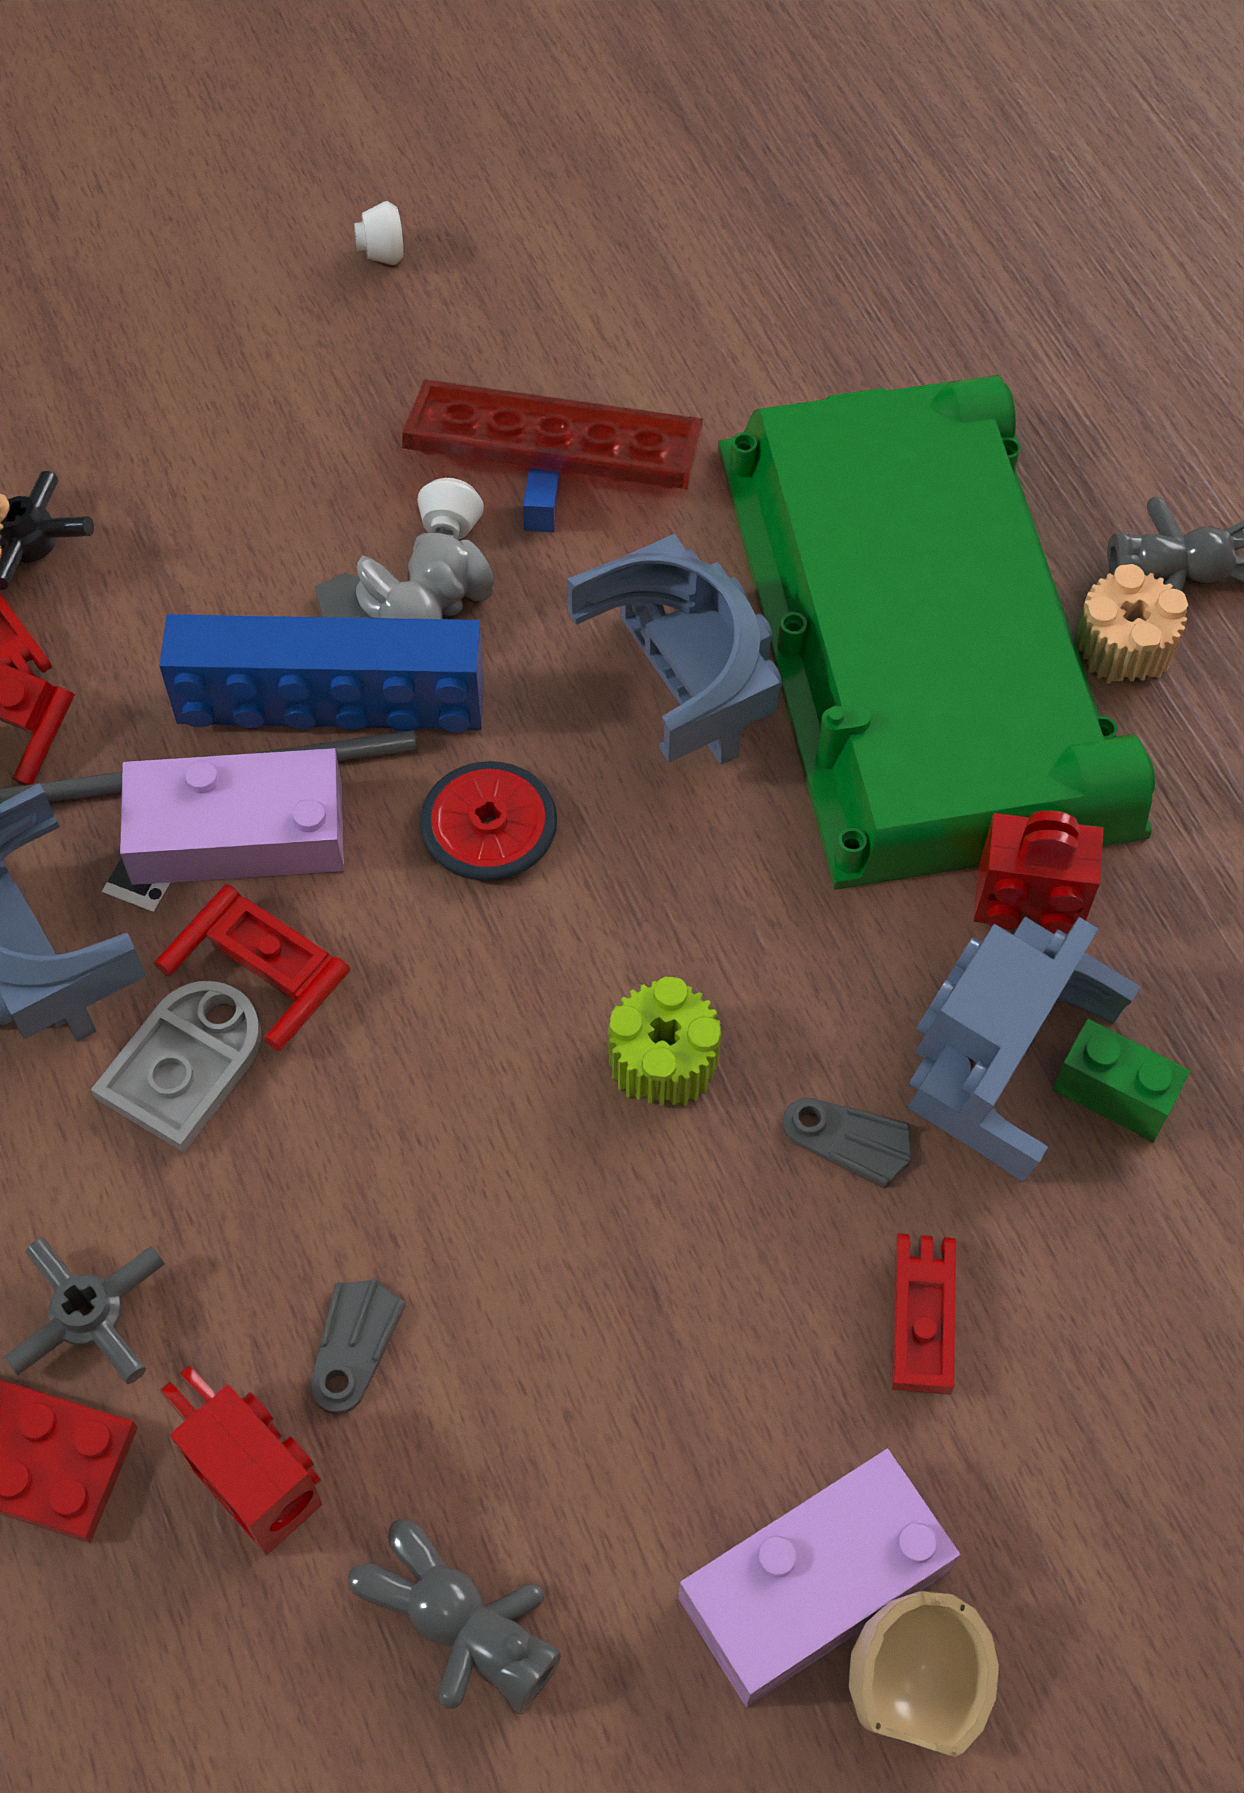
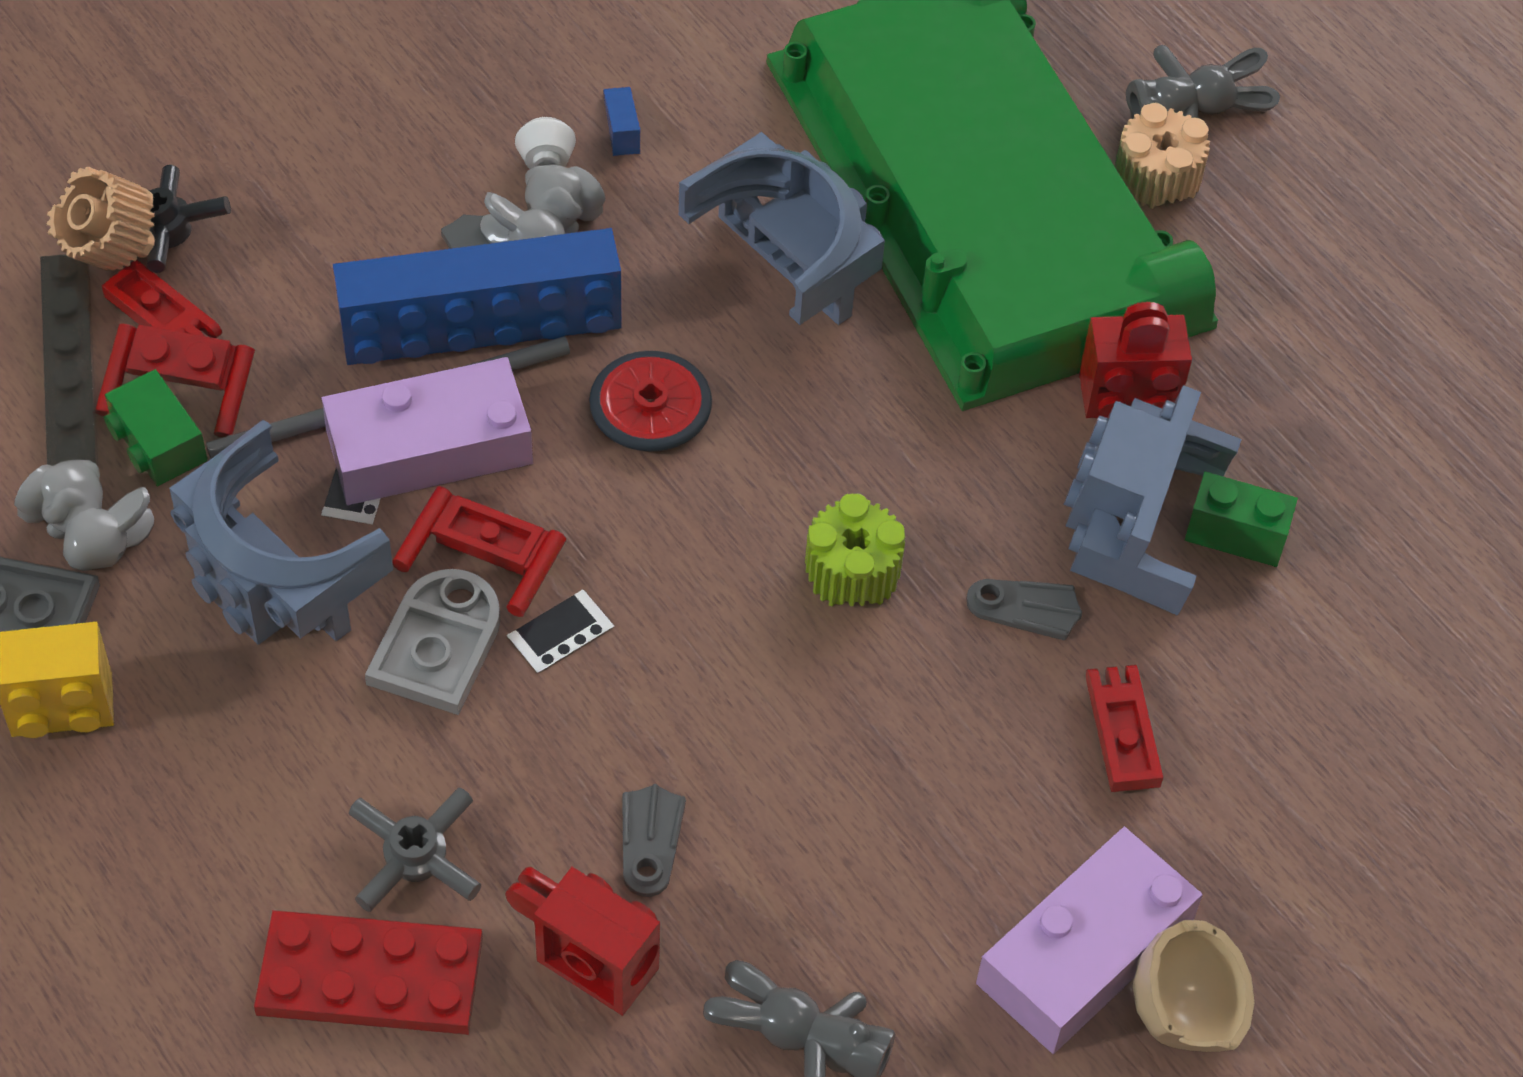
camera: 15 degrees left, 5 degrees down
(321, 1073) = (560, 631): none -> black sticker
(553, 434) = (621, 68): clear red plate -> none

